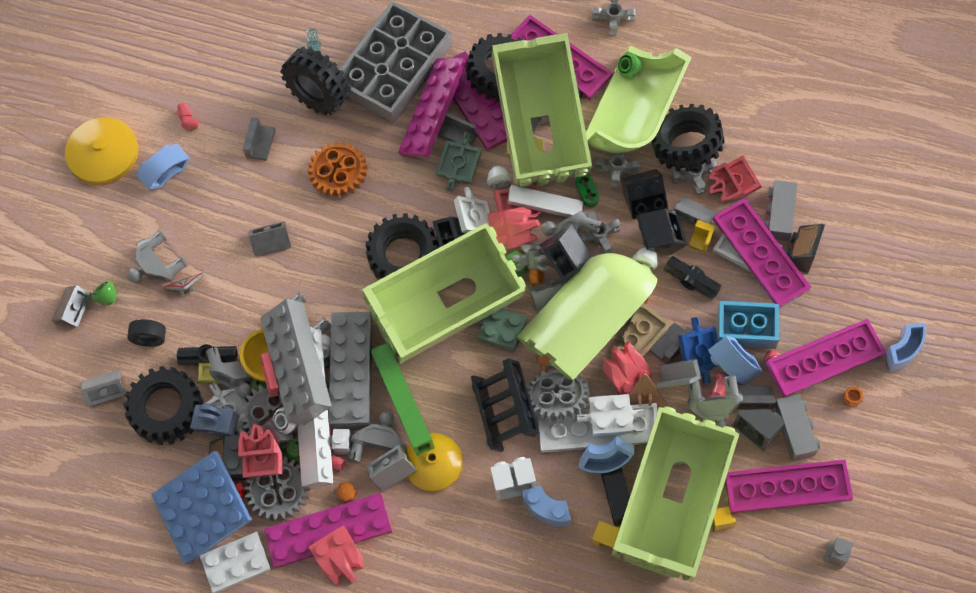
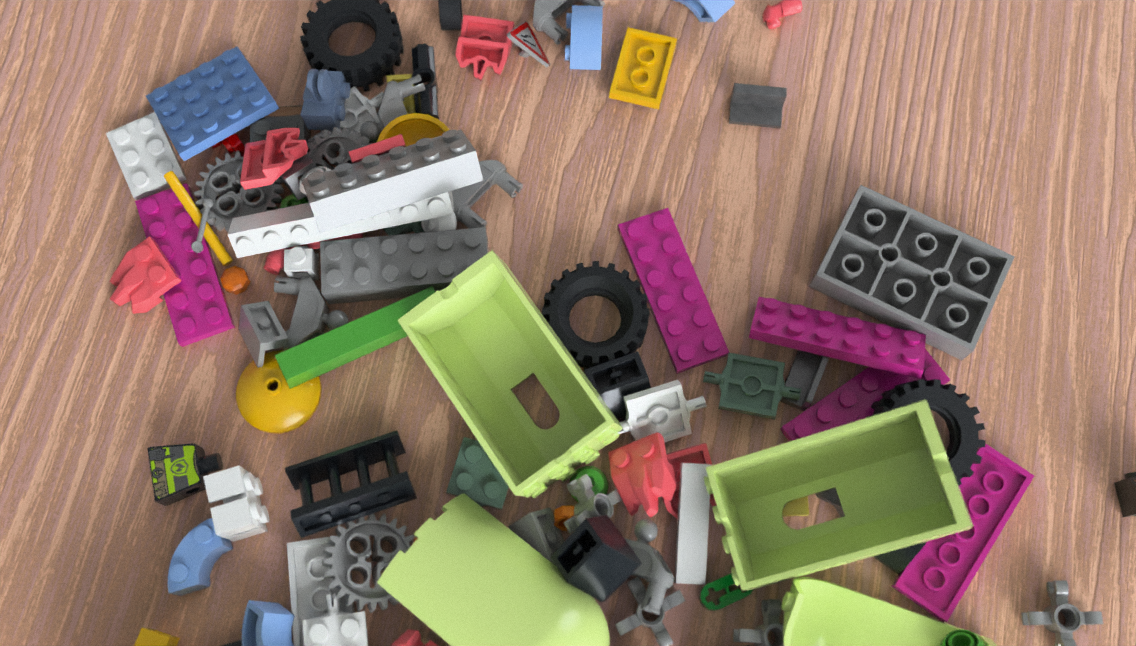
camera: 80 degrees right, 5 degrees up
(182, 312) = (484, 44): none -> coral plate
(188, 242) = (586, 37): none -> light blue brick
(217, 209) = (643, 68): none -> yellow plate
(269, 238) = (605, 138): flat silver panel -> none
(295, 516) = (196, 216): none -> yellow bar
(313, 41) = (924, 161): clear light blue axle -> none
(315, 80) = (851, 159): black tyre -> none
(319, 514) = (197, 246): none -> light grey hinge
(352, 174) = (713, 235): orange gear -> none
(370, 207) = (672, 290): none -> dark pink plate
(485, 523) = (179, 471): none -> torso
(498, 178) = (730, 445): white cone -> none

